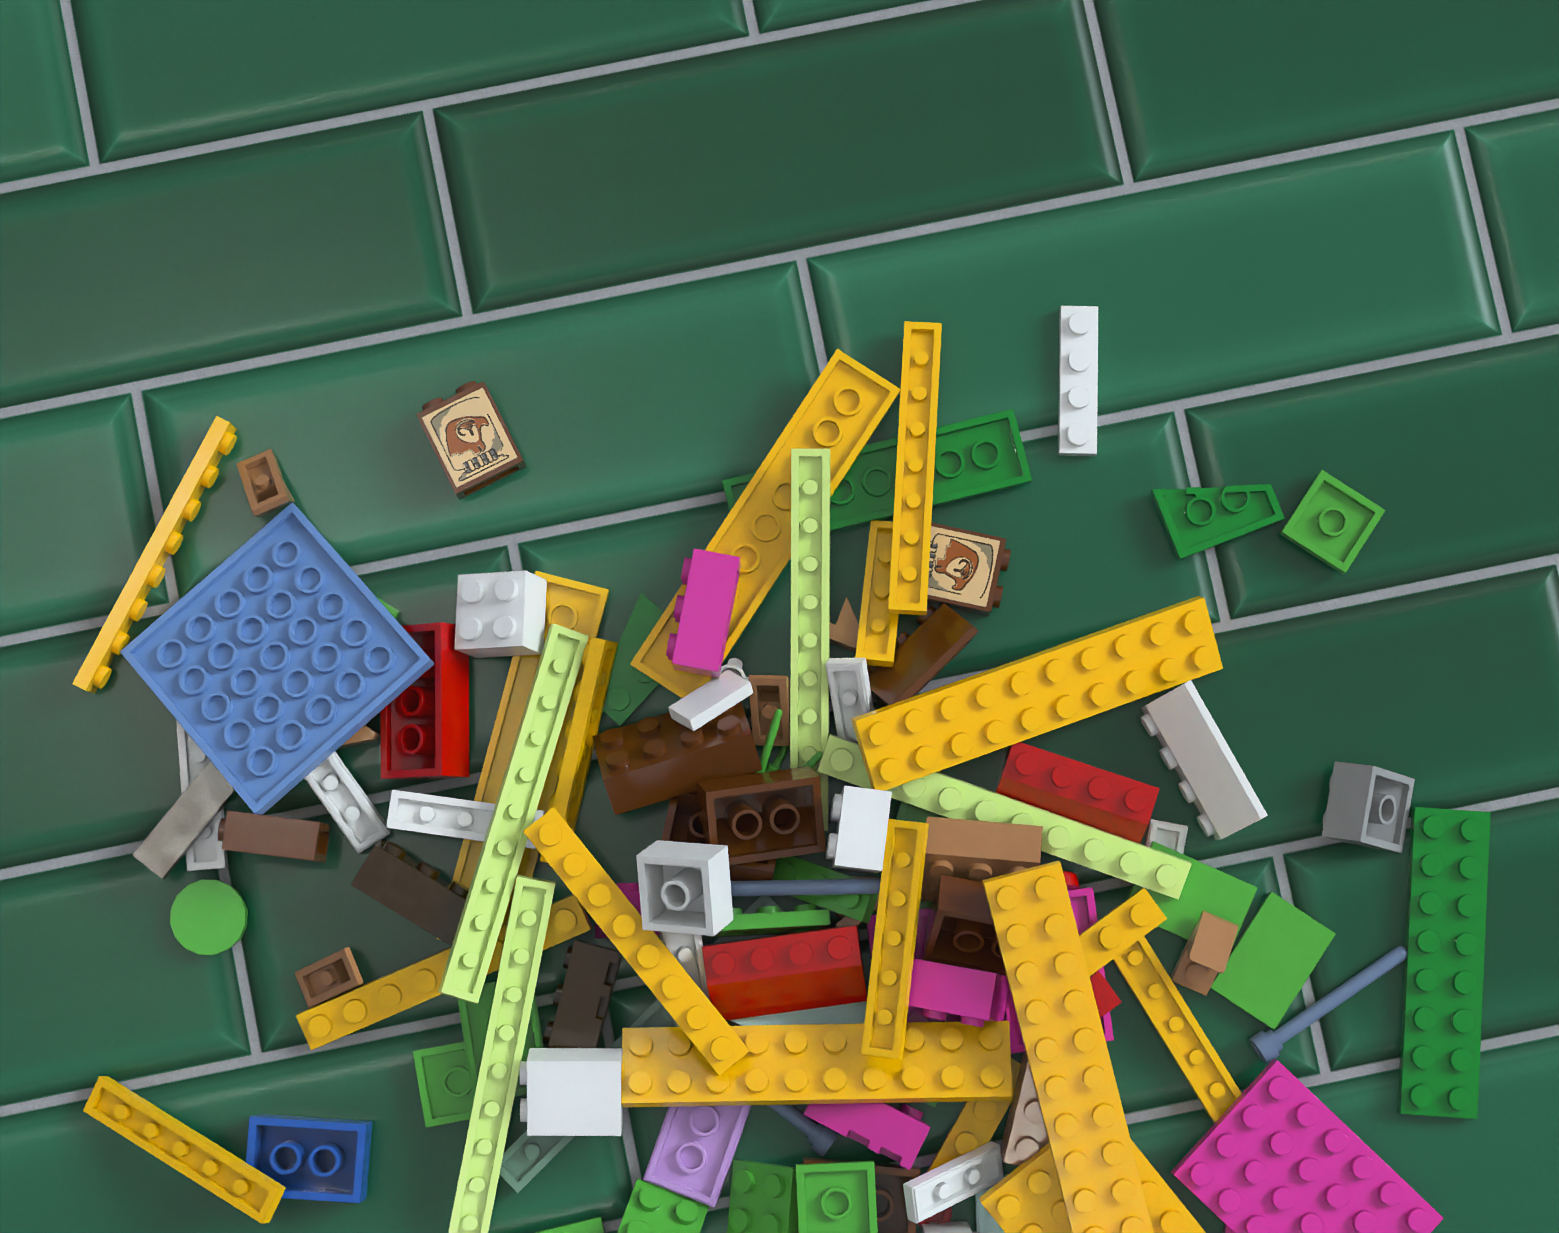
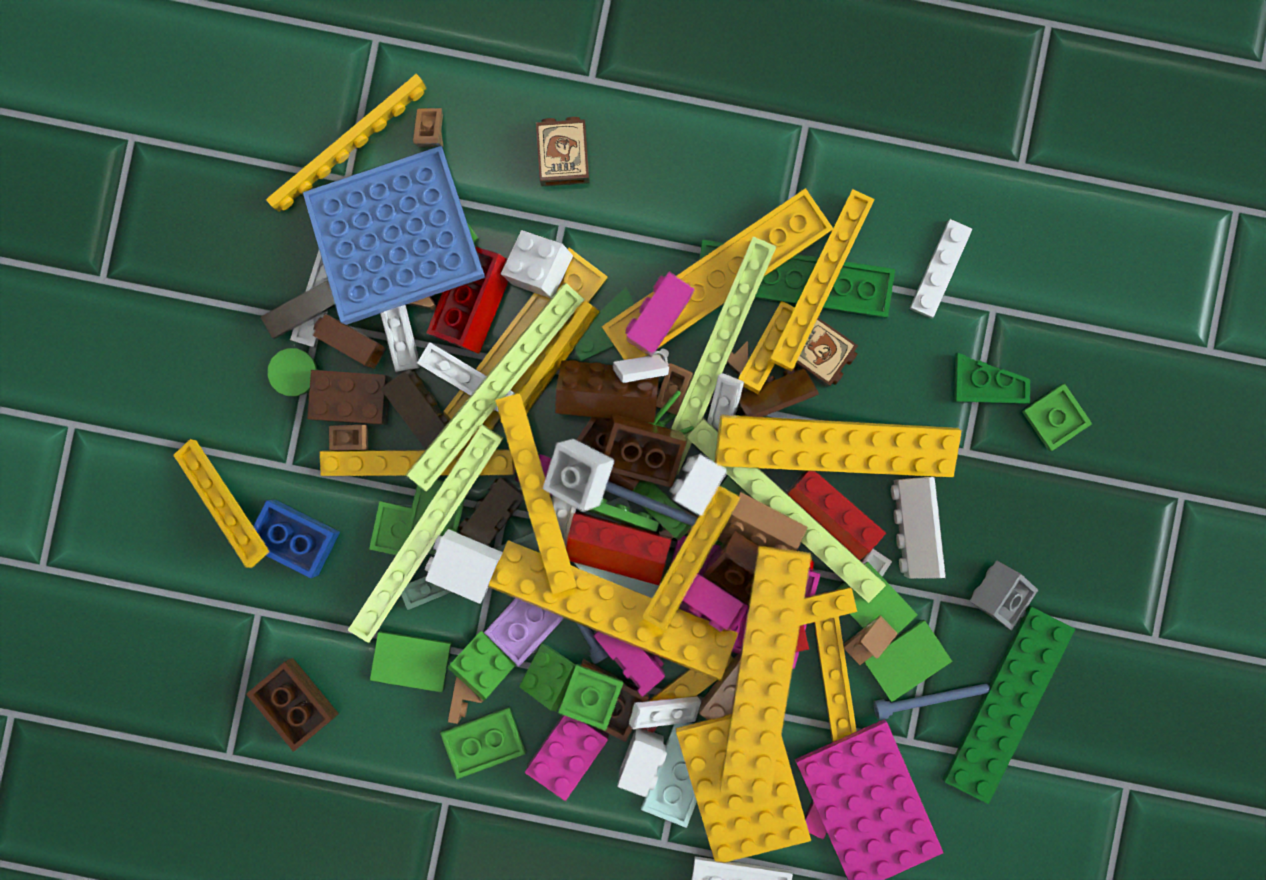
camera: 20 degrees right, 5 degrees up
(306, 919) = (348, 397): none -> reddish brown brick

